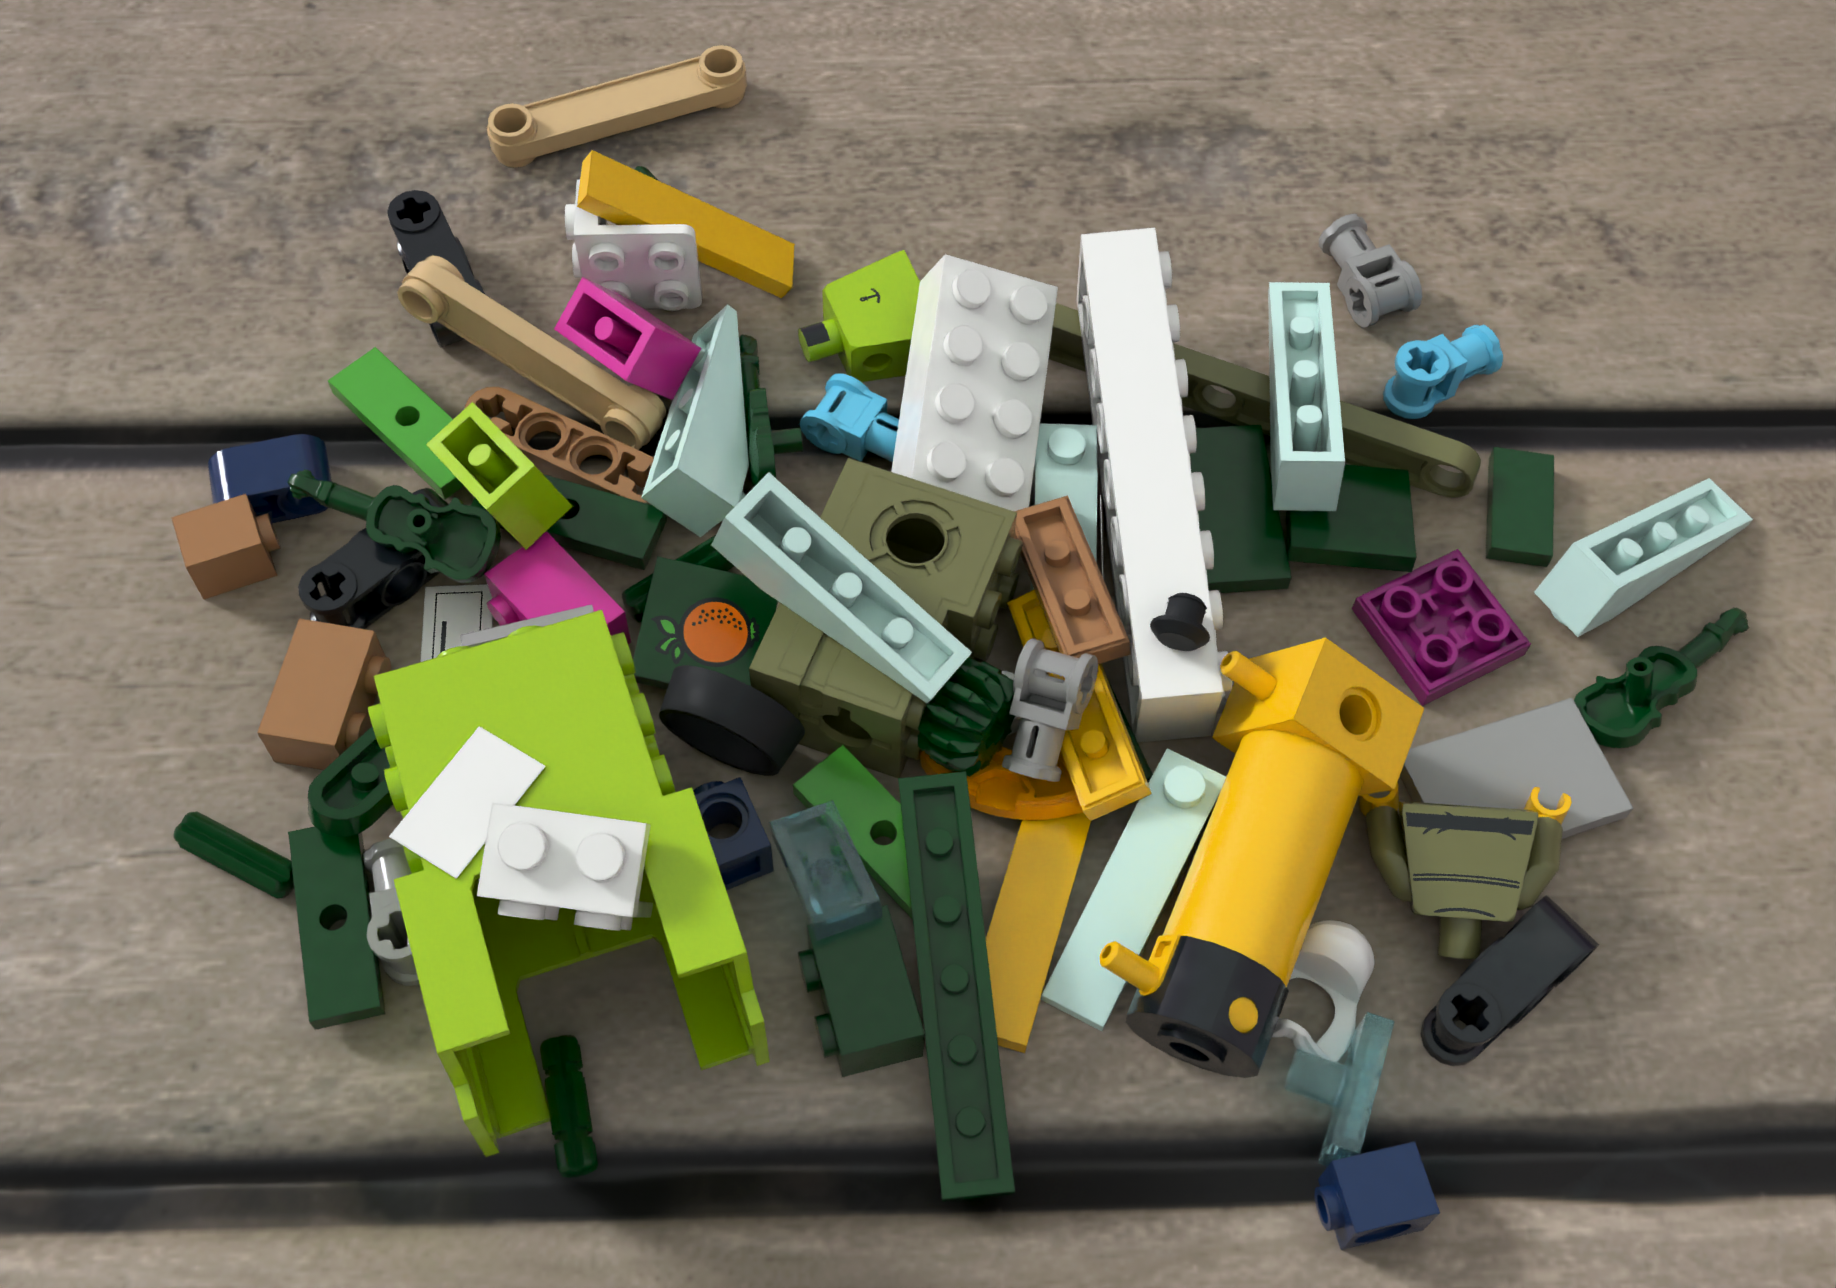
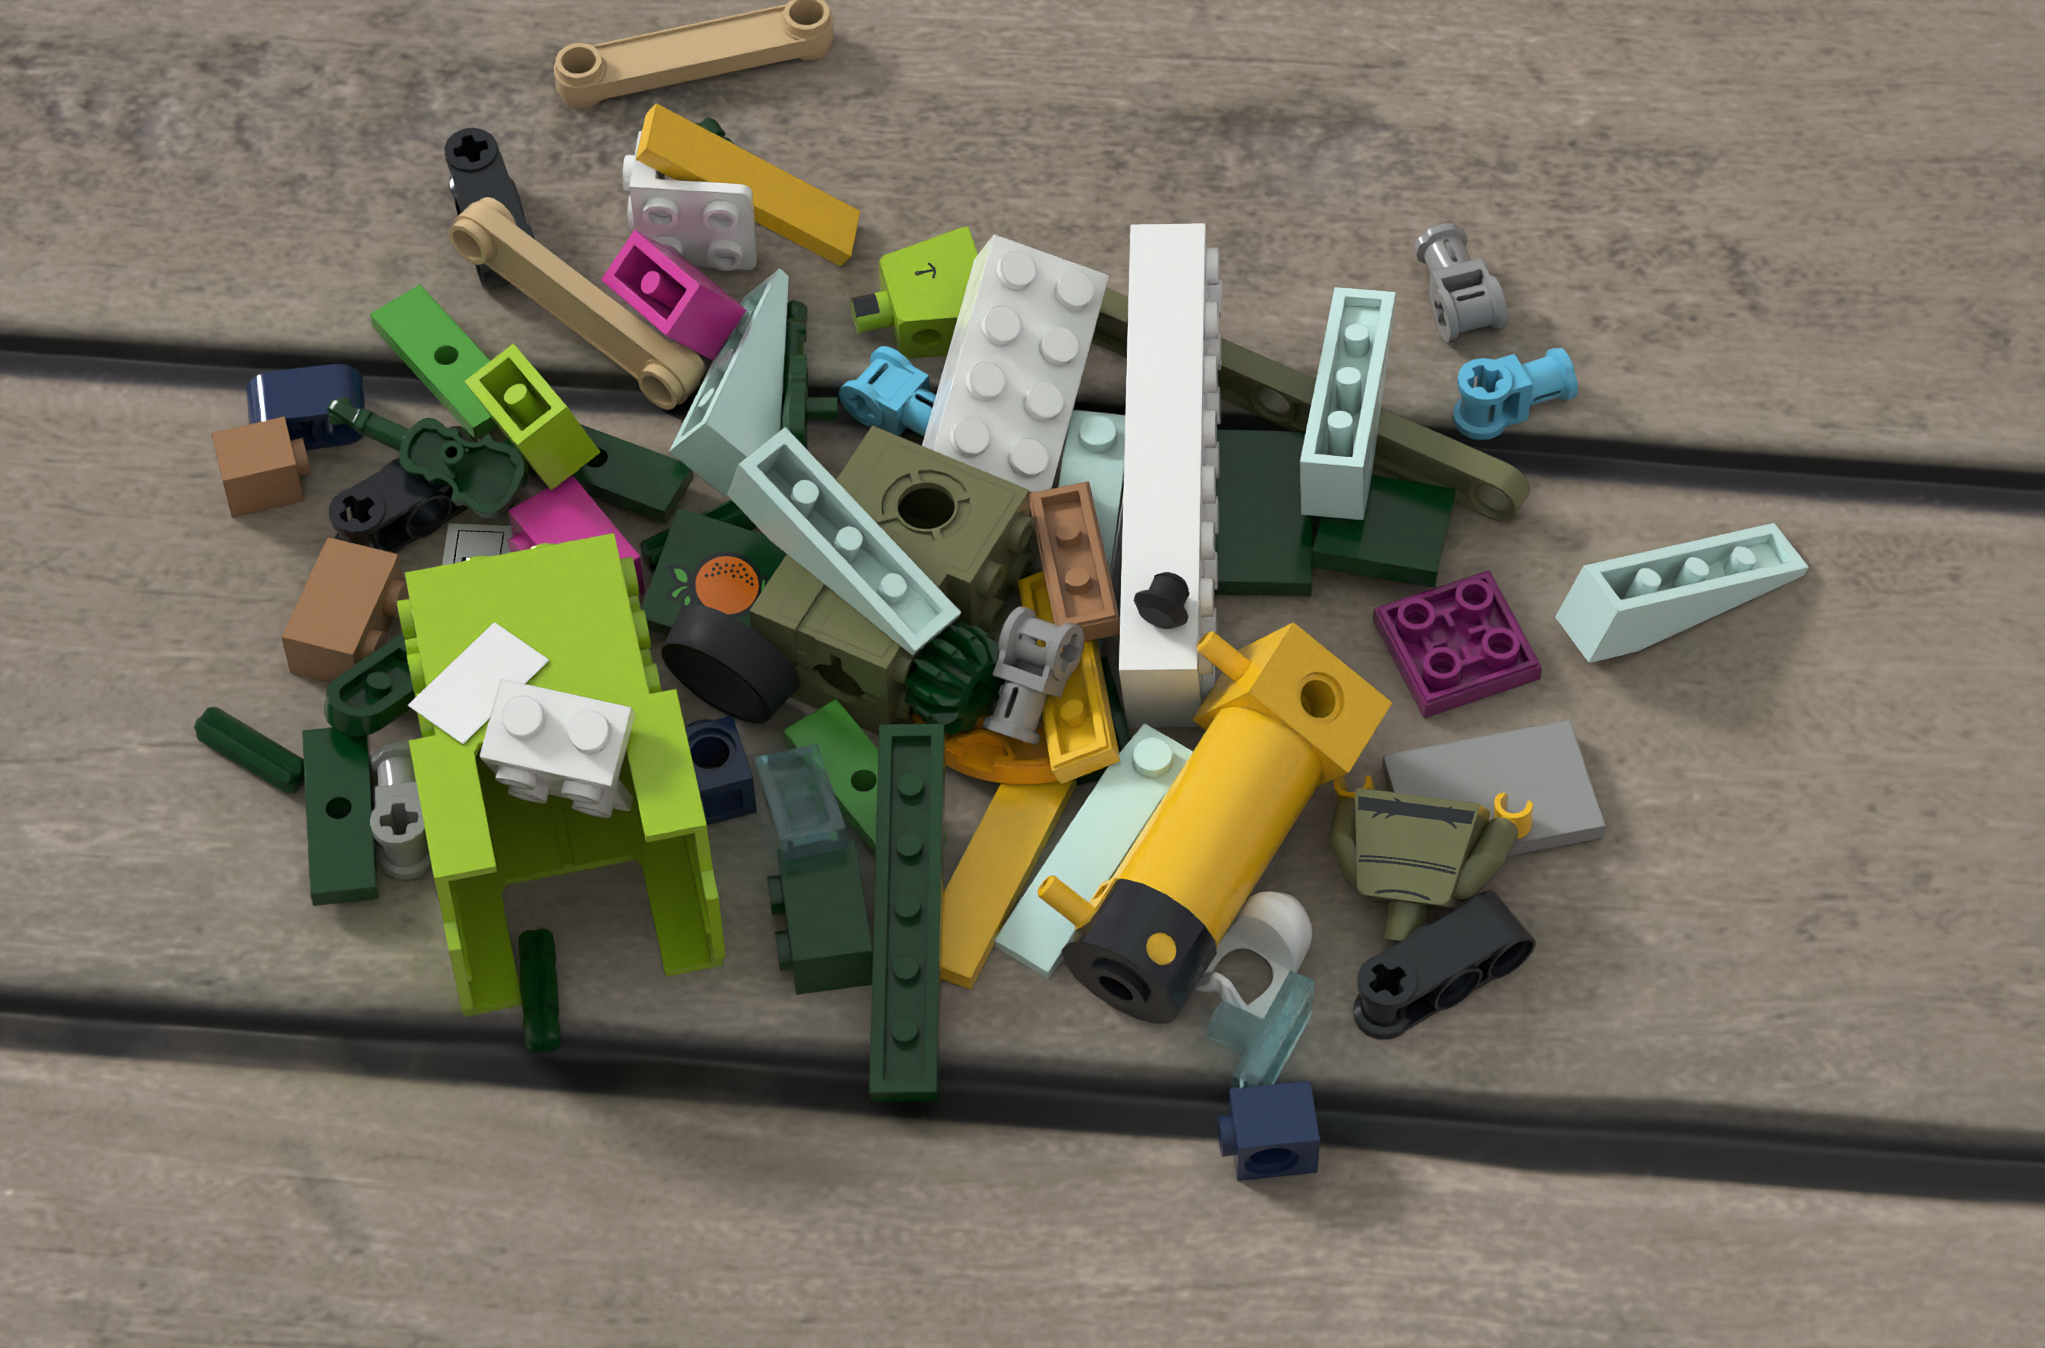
camera: 10 degrees right, 5 degrees down
(575, 444) = (609, 399): medium nougat beam -> none
(1520, 507) = (1566, 532): dark green tile -> none
(1628, 706) = (1623, 734): dark green piece -> none

